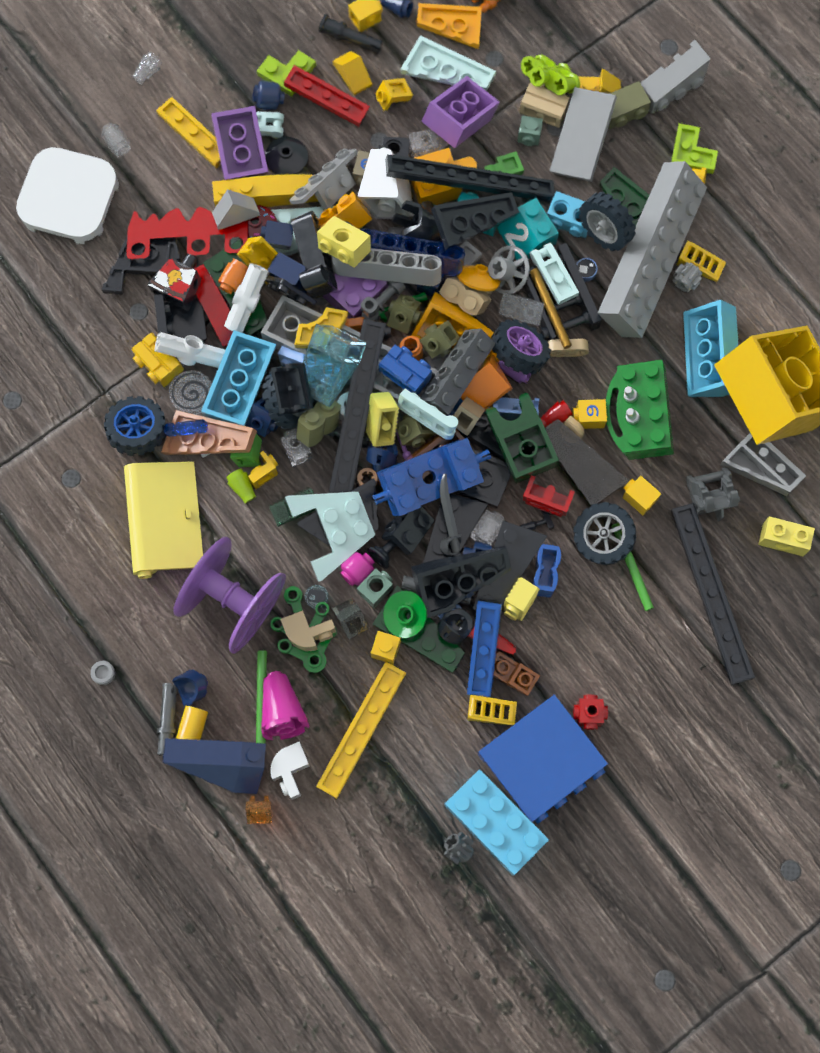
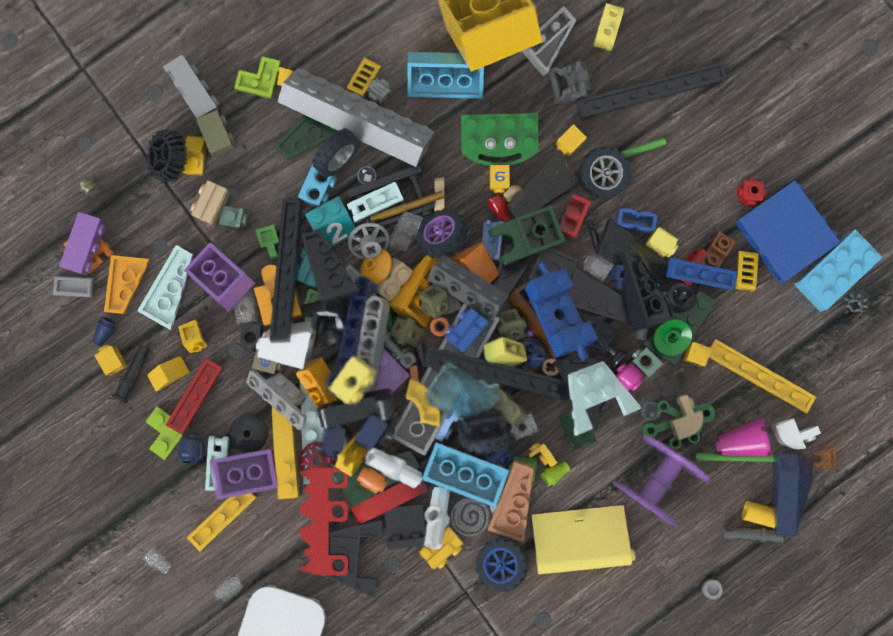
camera: 85 degrees left, 10 degrees up
(177, 282) = (373, 529): torso -> none
(186, 428) = (507, 520): clear blue axle -> none
(191, 686) = (728, 514): dark blue piece -> none
(234, 209) = (307, 478): light grey slope -> none
(427, 414) = (507, 313): light aqua plate -> none
(453, 536) = (605, 295): dark grey sword -> none
(468, 415) = (506, 280): dark tan brick -> none
(544, 71) = (187, 194): lime axle -> none
(583, 134) = (244, 170): light grey tile -> none
(595, 54) = (167, 155): none -> black gear

